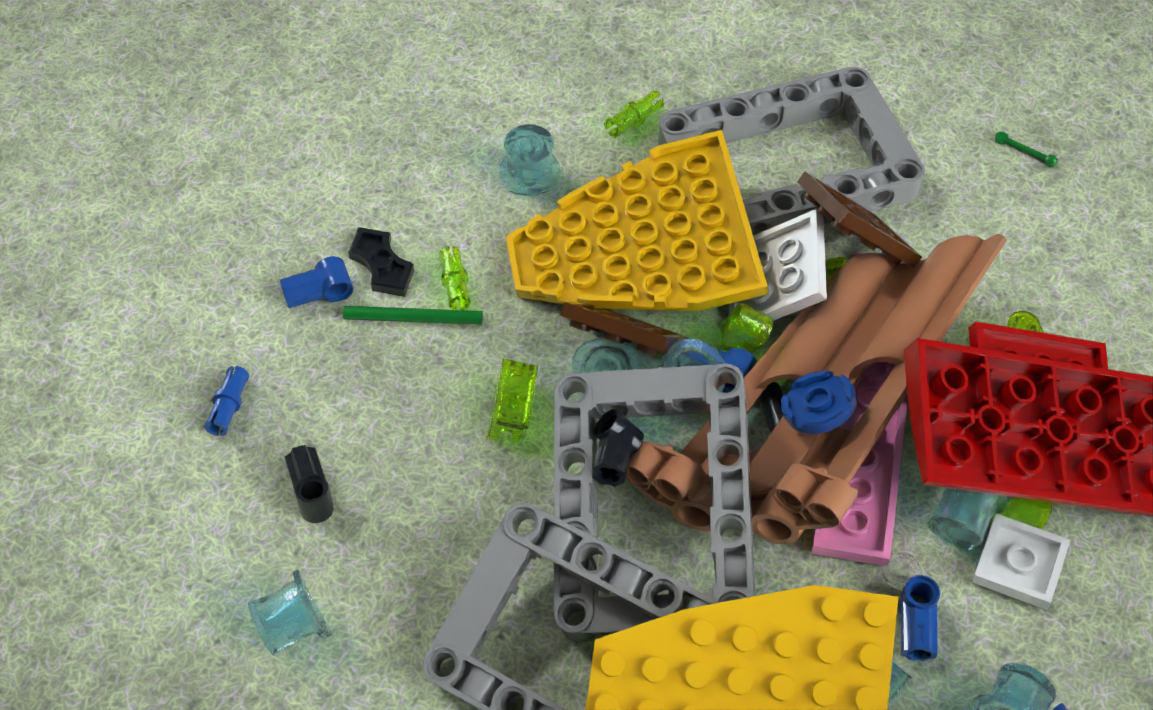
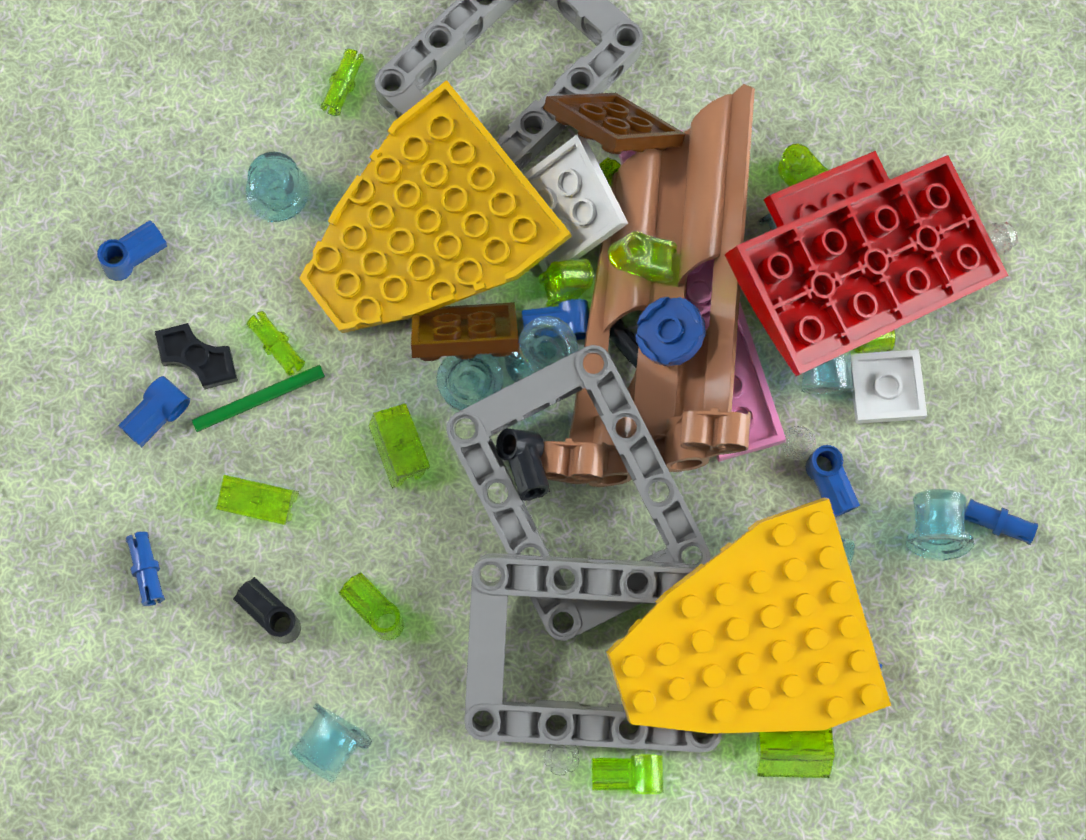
camera: 30 degrees left, 20 degrees up
(359, 385) = (256, 499): none -> clear neon green hinge
(366, 161) = (134, 249): none -> blue piece
(405, 524) = (371, 605): none -> clear neon green piece
(828, 332) = (649, 258): none -> clear neon green piece

